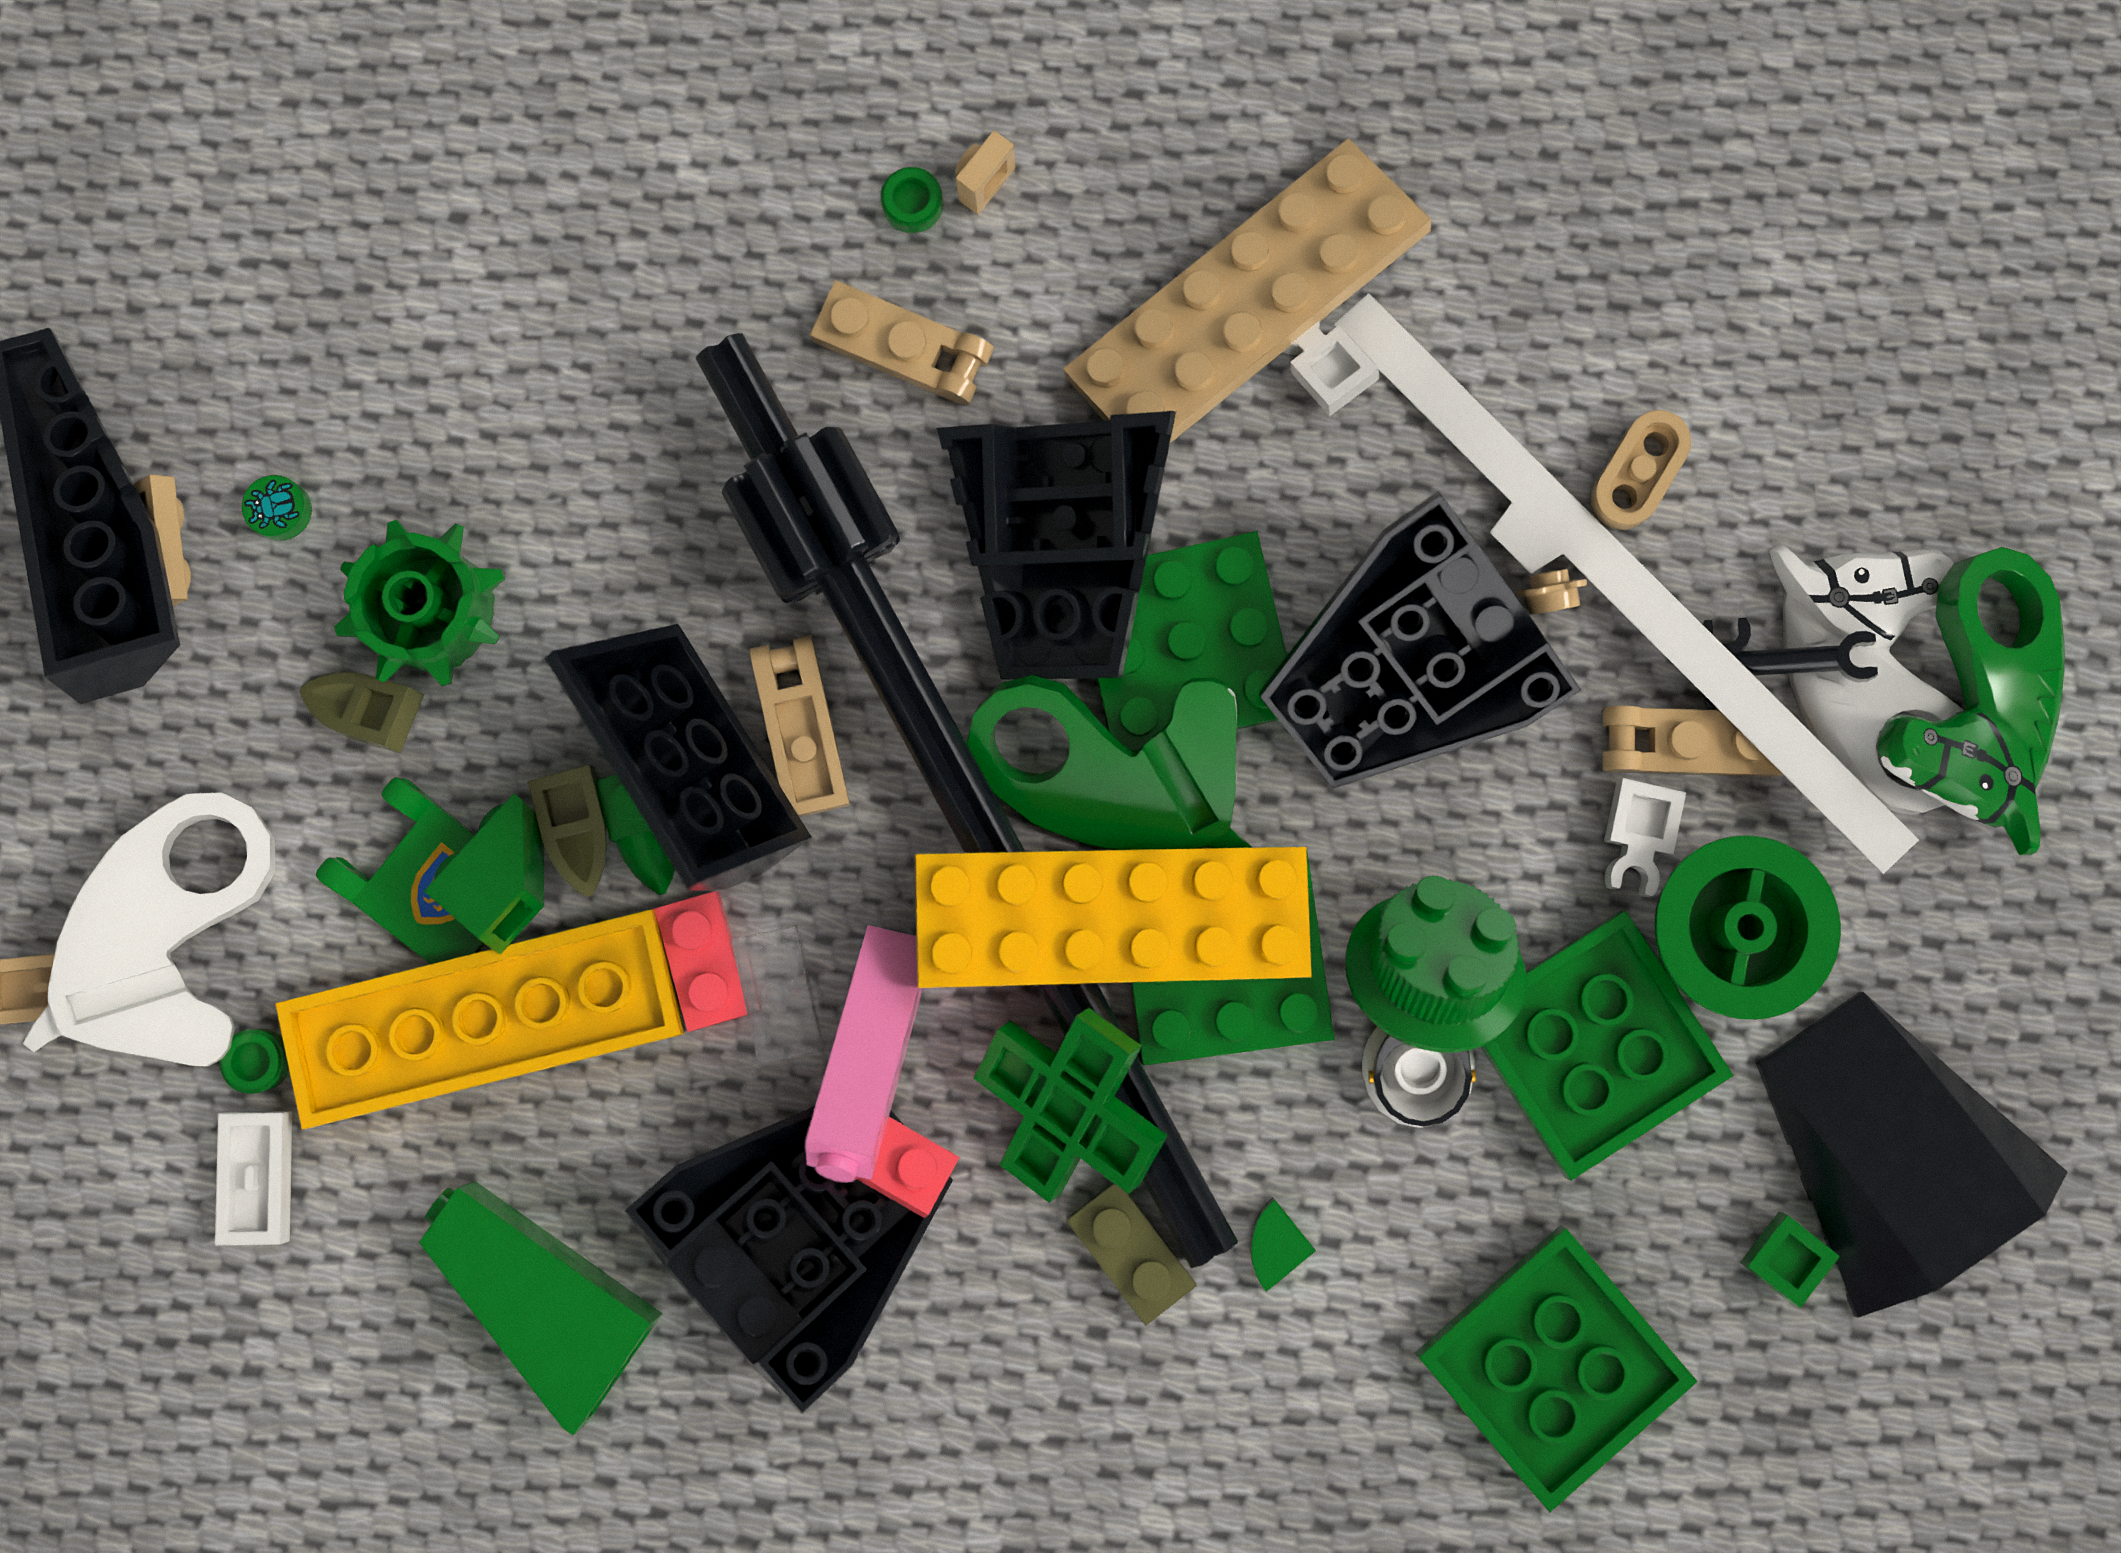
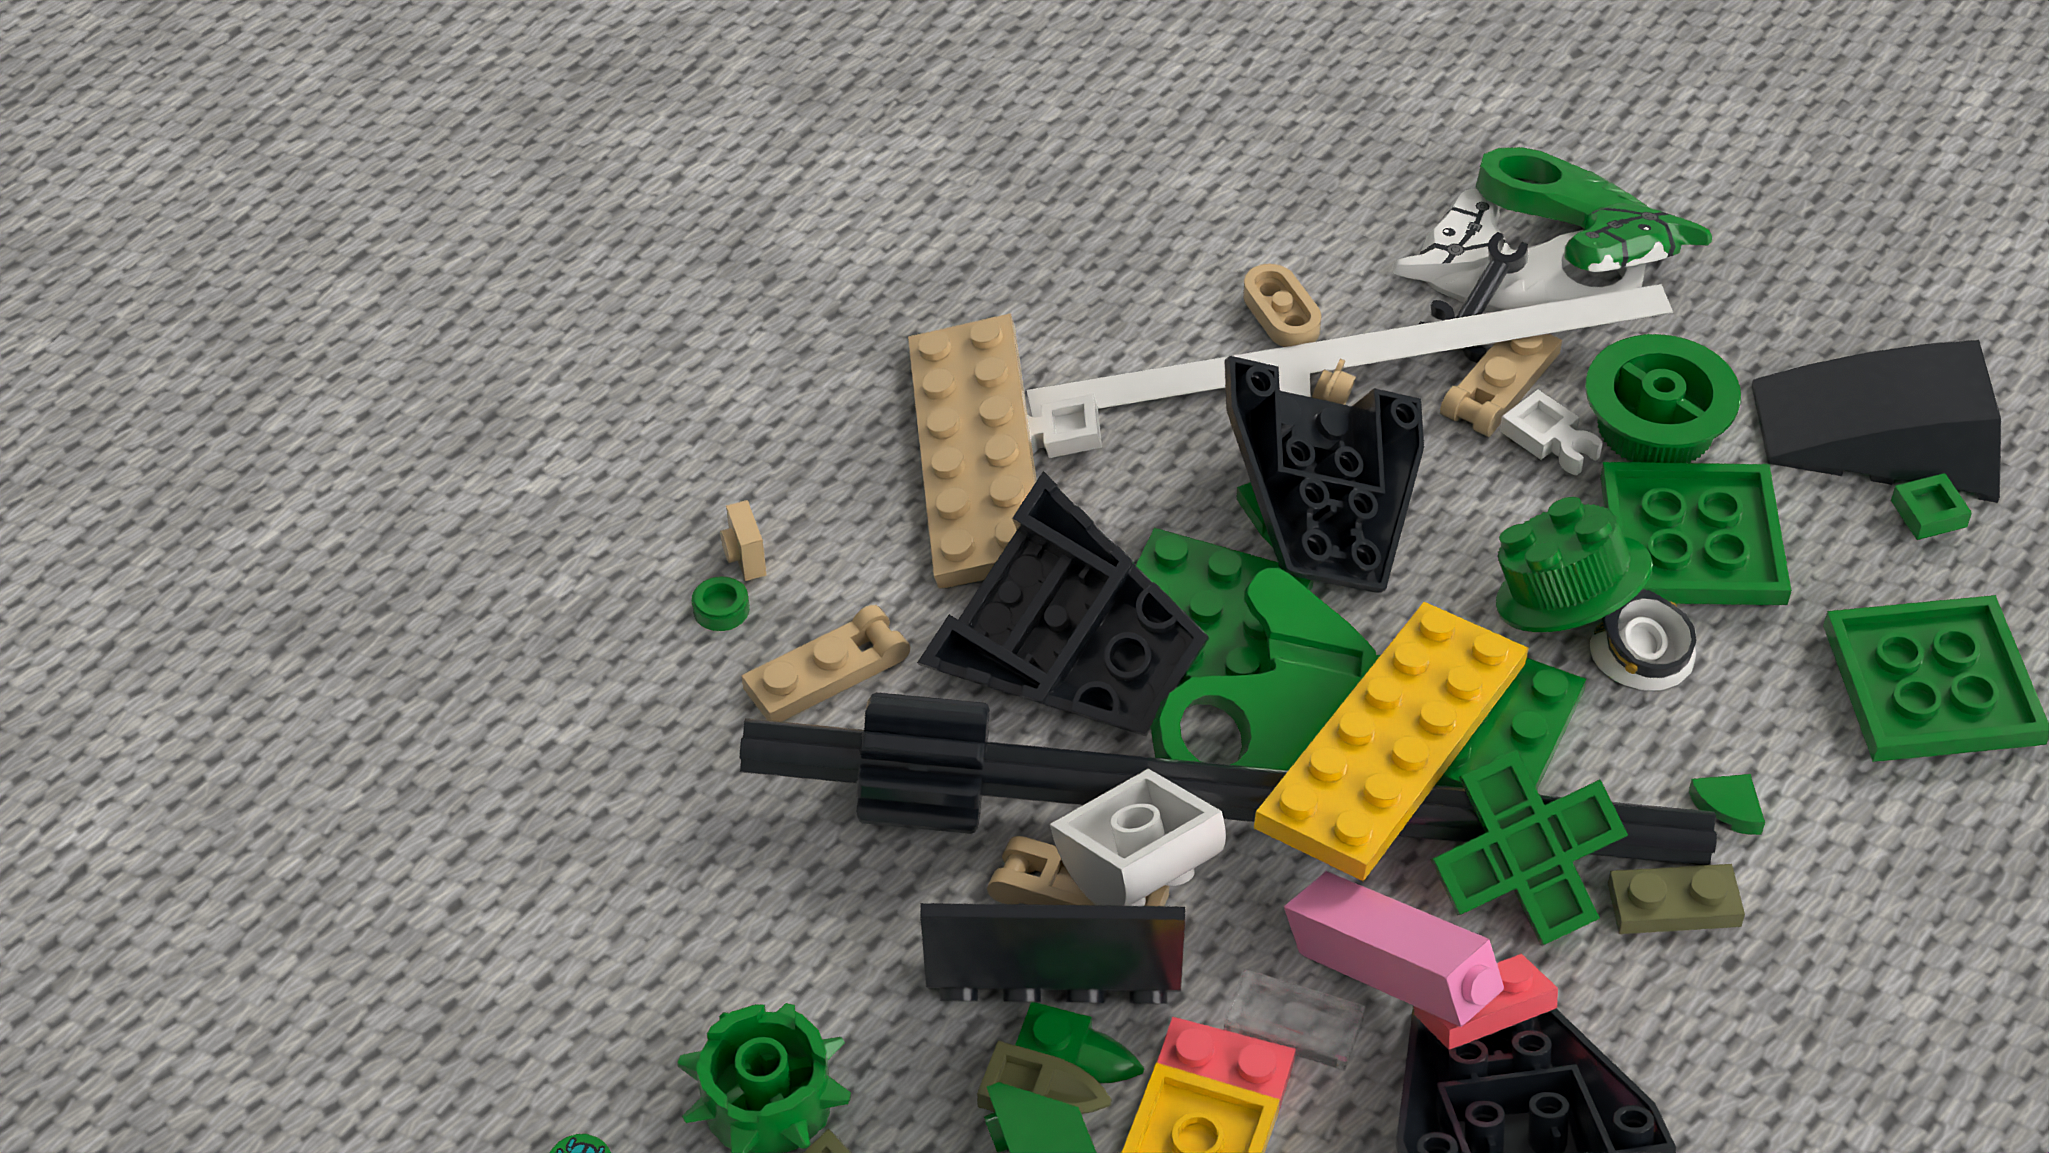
camera: 60 degrees left, 35 degrees down
(828, 762) = (1137, 840): none -> white brick

